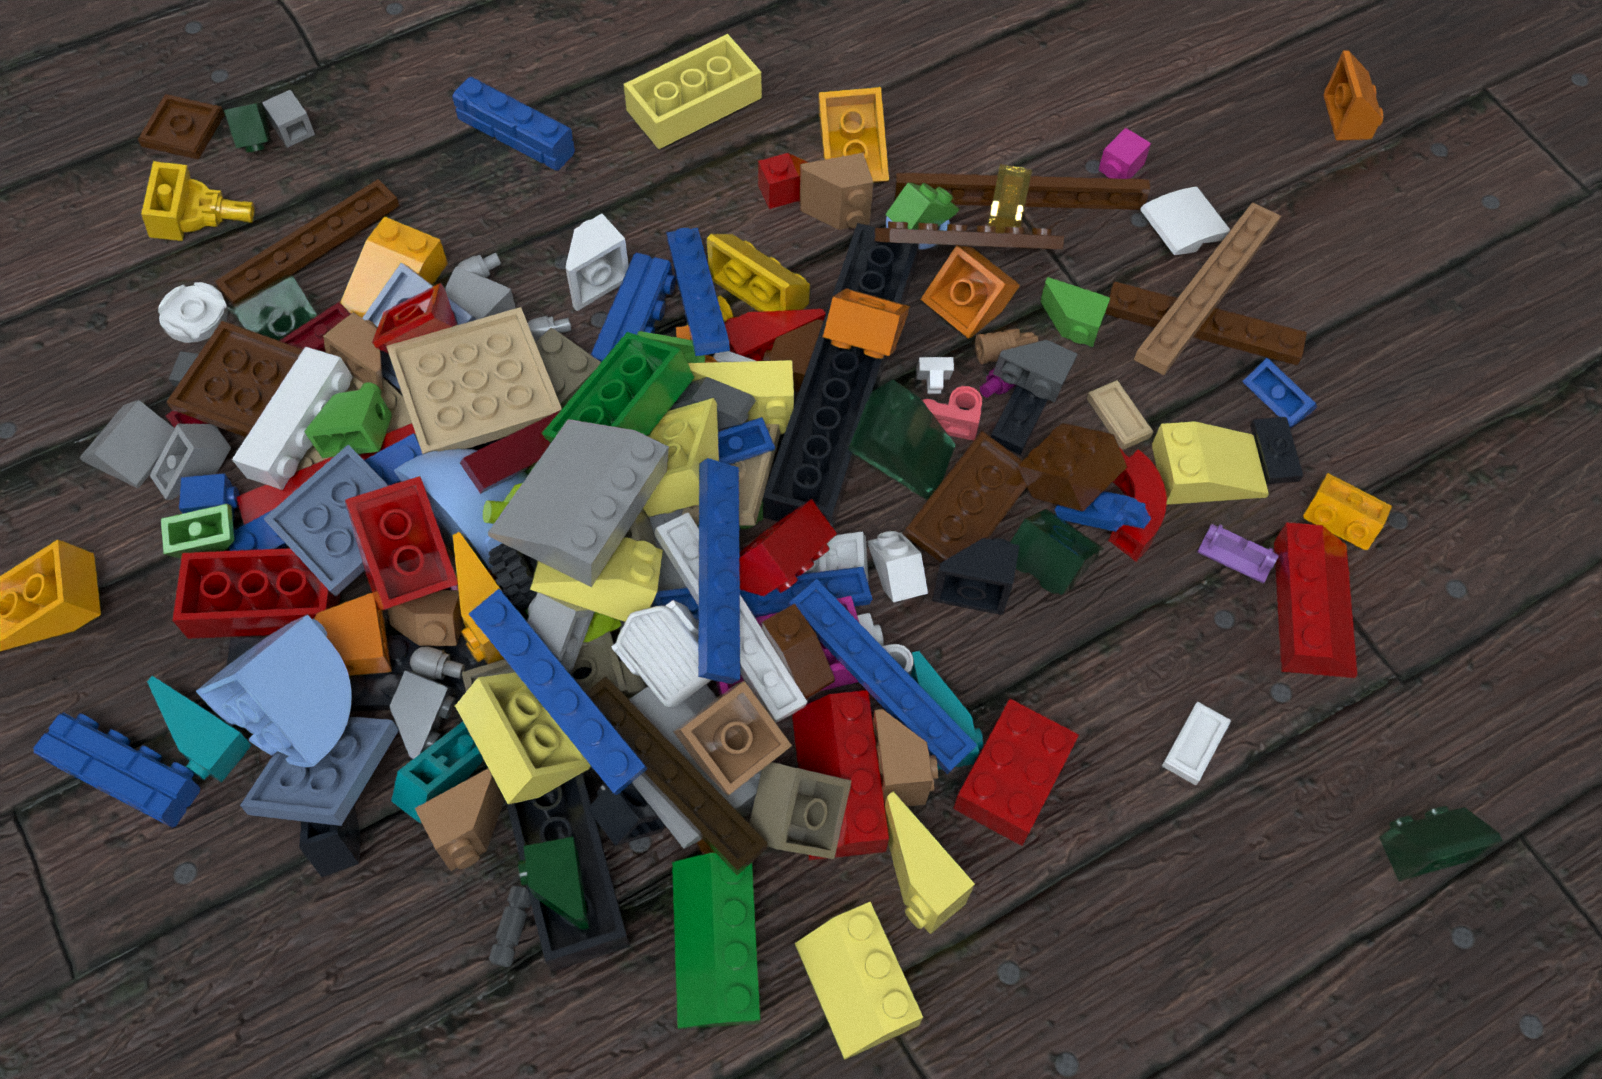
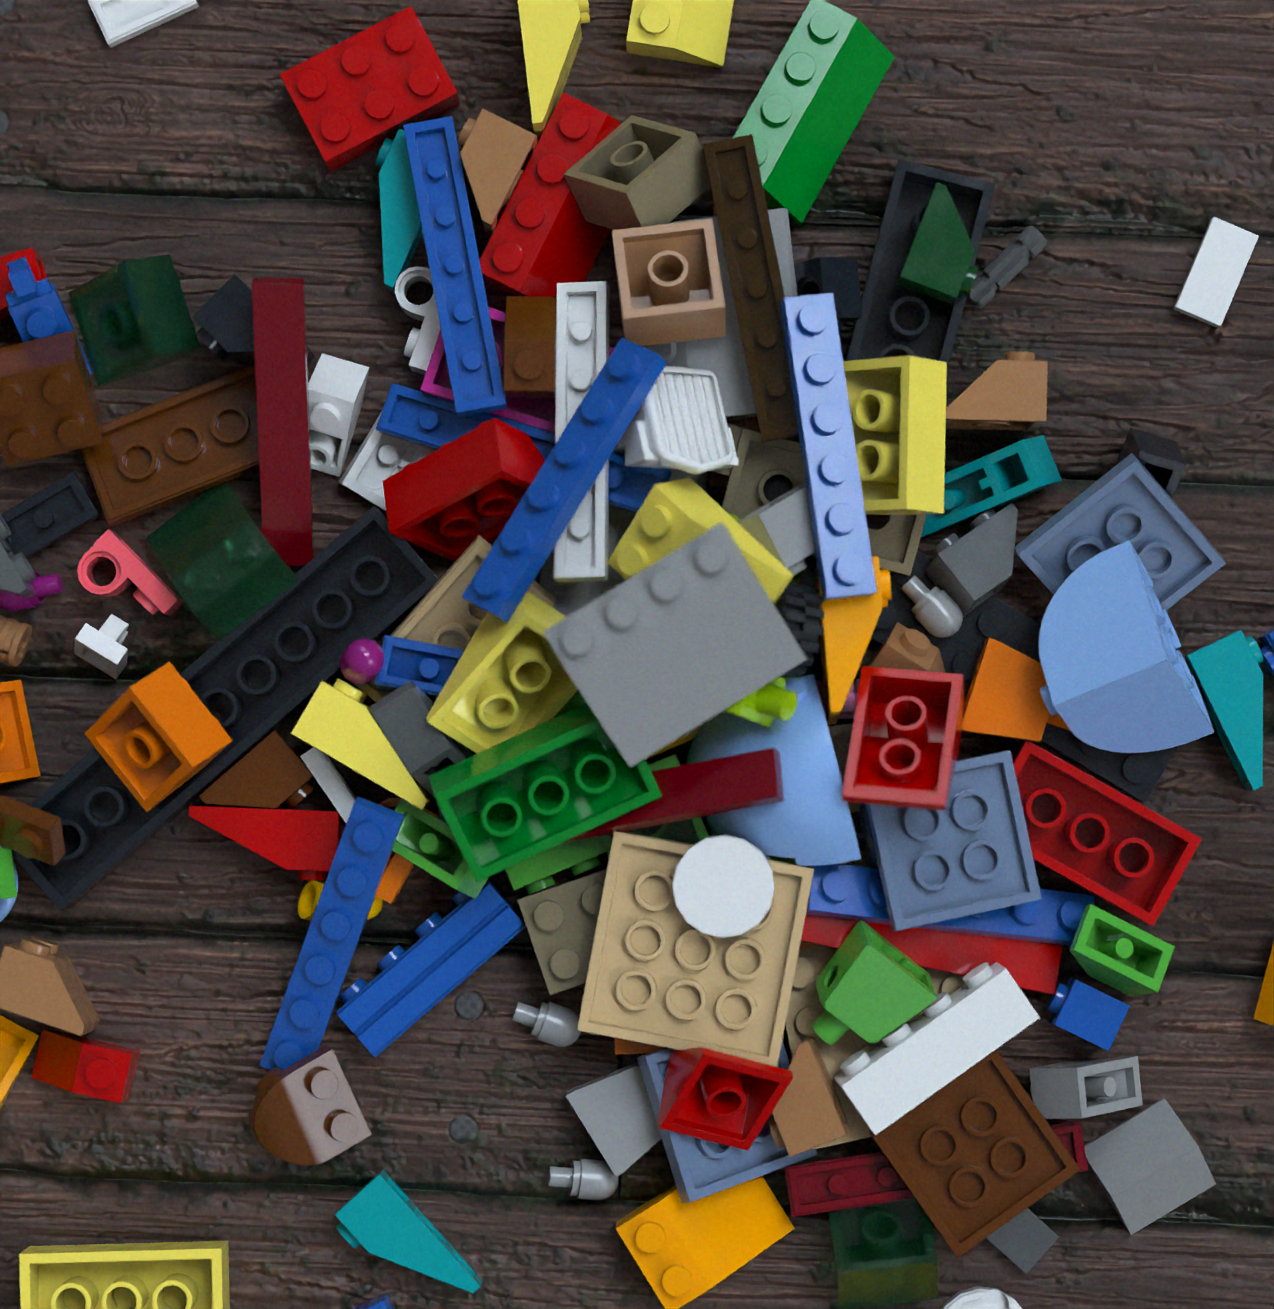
camera: 145 degrees left, 25 degrees up
(351, 1019) = (1215, 272): none -> white tile
(474, 412) = (723, 885): none -> white tile
(564, 191) = (397, 1230): none -> teal slope
(595, 261) = (430, 1074): white slope -> none
(654, 216) = (307, 1111): none -> slope
(754, 276) = (232, 925): yellow slope -> none
(777, 421) = (362, 661): none -> magenta cylinder
(924, 529) = (283, 416): none -> dark red tile

